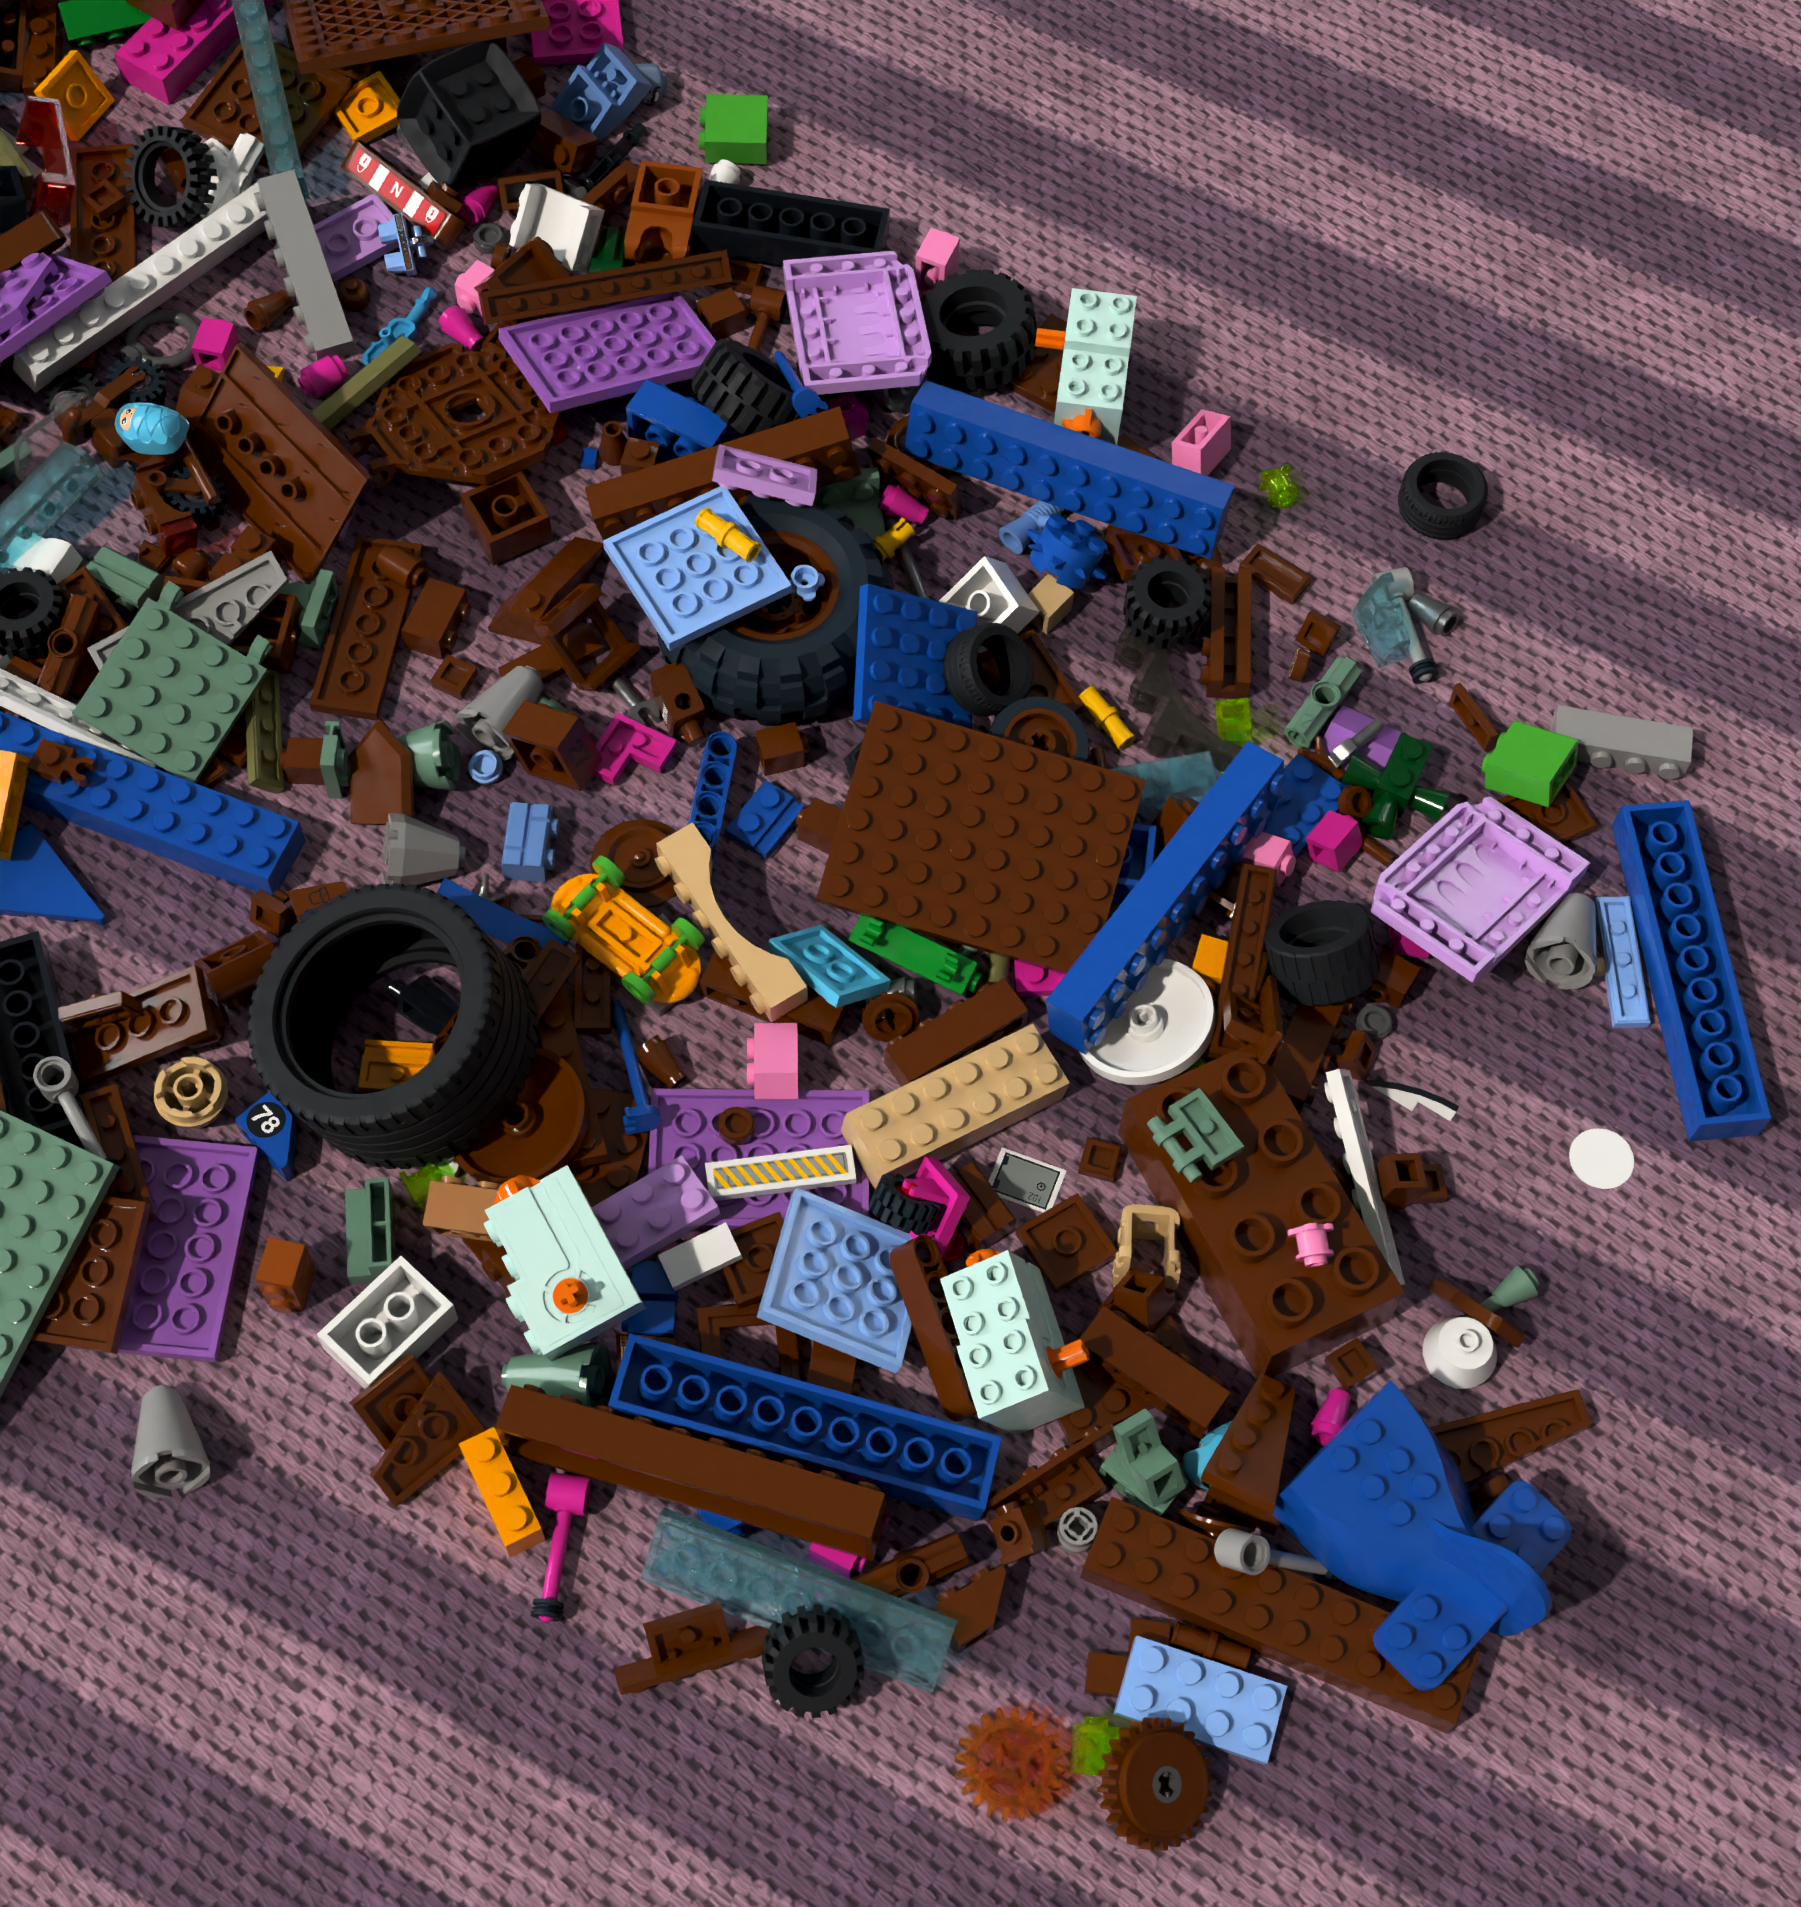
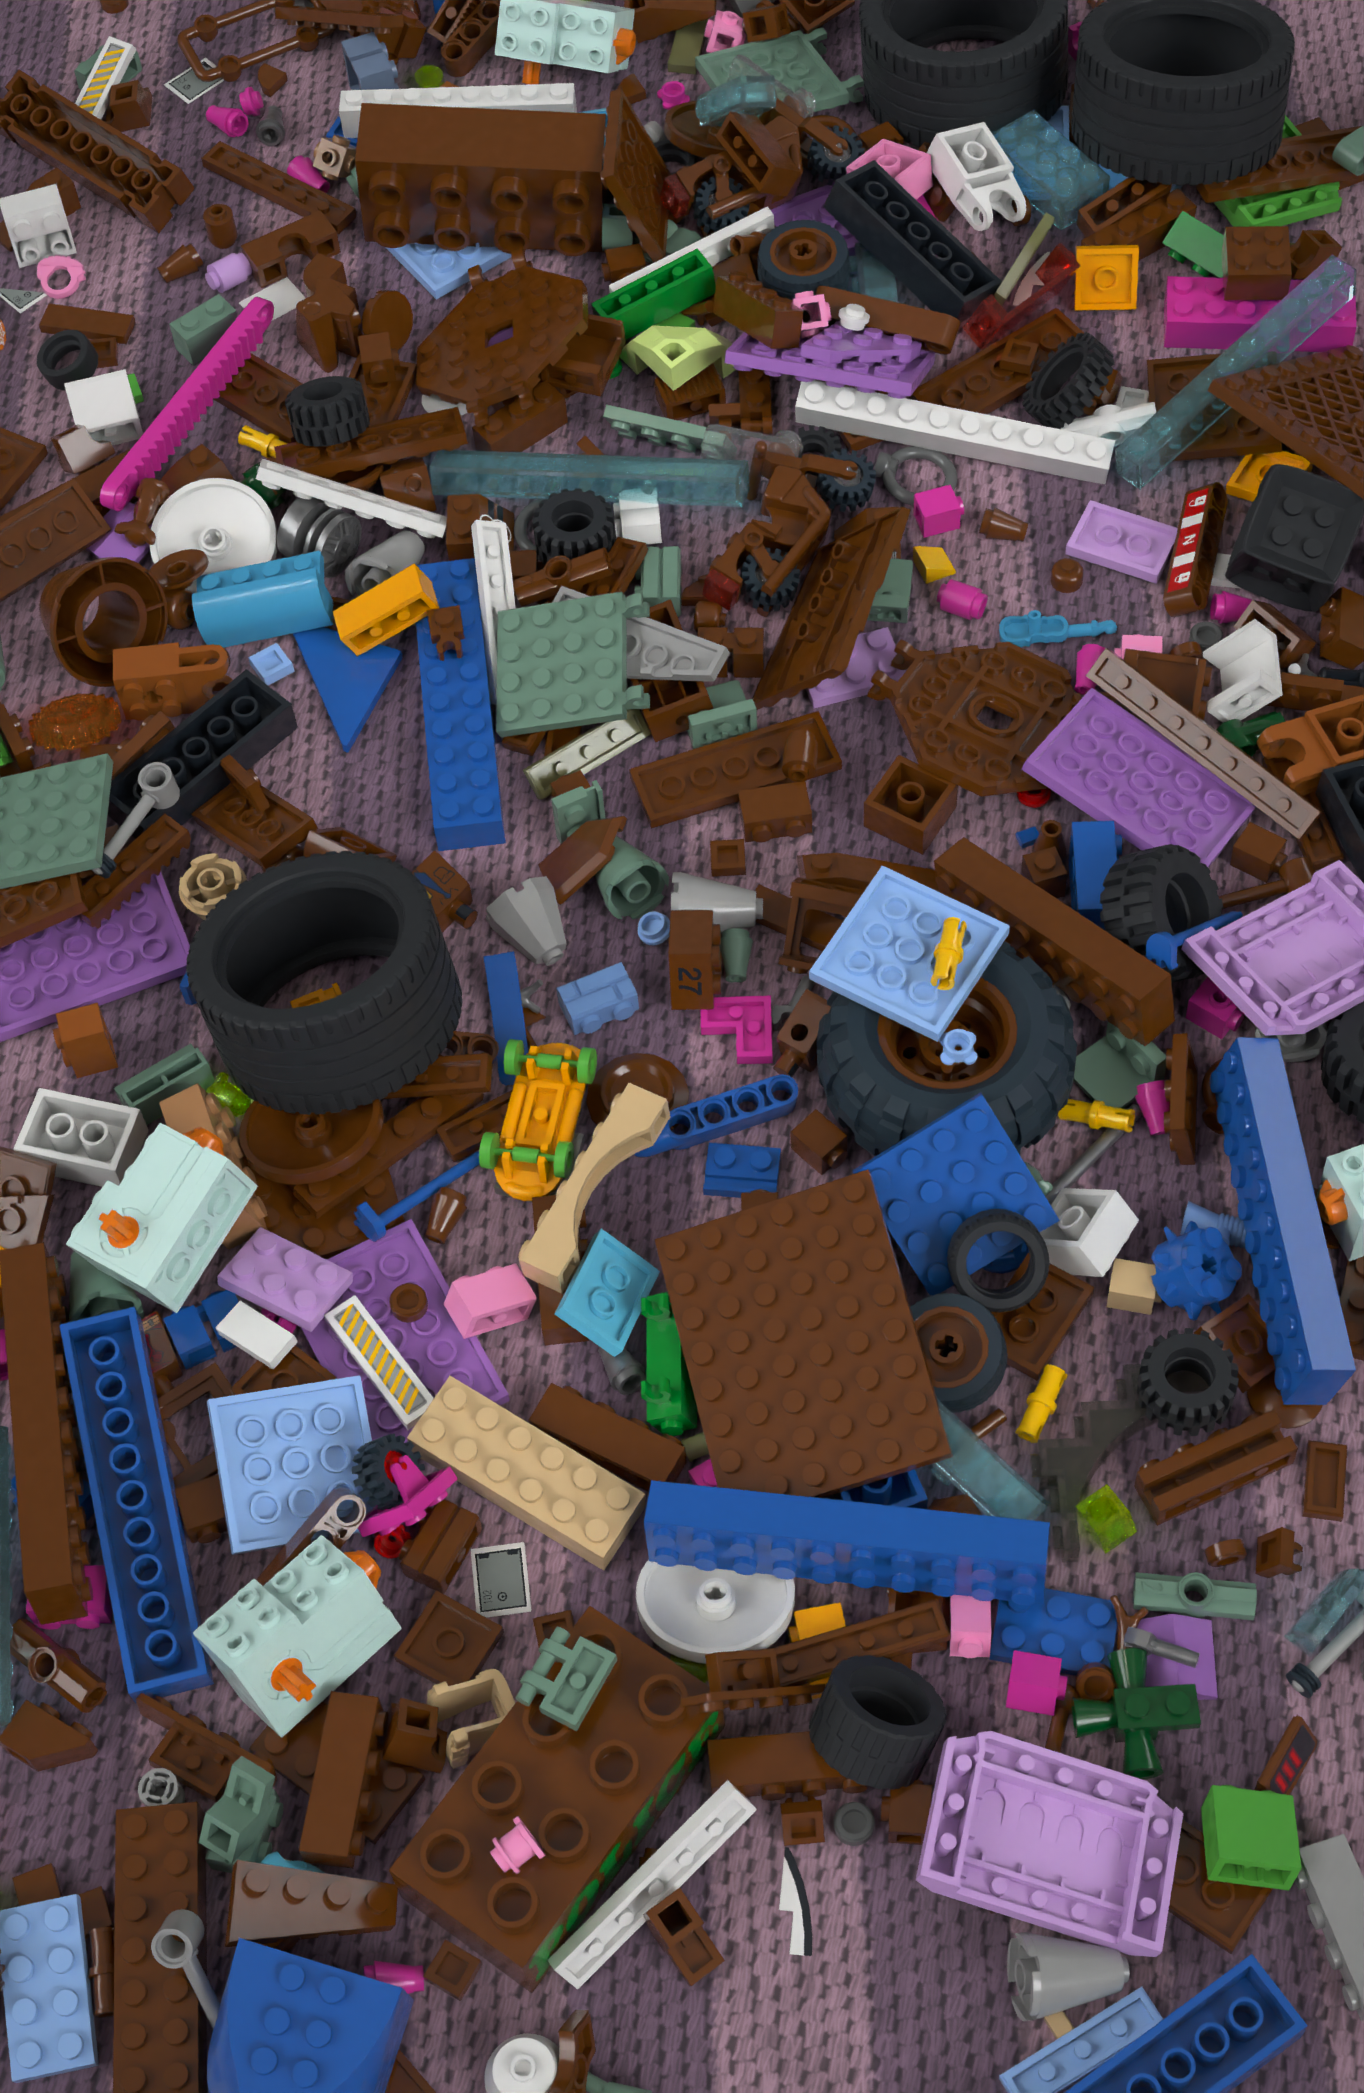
camera: 70 degrees right, 5 degrees down
(151, 428) = (794, 504): medium azure piece -> none
(270, 911) = (416, 849): reddish brown tile -> none
(305, 266) = (1052, 520): light grey brick -> none
(366, 382) = (972, 631): olive tile -> none
(397, 231) = (1139, 579): light blue hips -> none
(445, 195) = (1210, 577): reddish brown plate -> none
(765, 476) = (1046, 953): lavender plate -> none
(877, 1024) = (583, 1374): reddish brown gear -> none
(1019, 1532) = (132, 1740): reddish brown brick -> none
(1214, 1524) = (215, 1908): reddish brown dish -> none

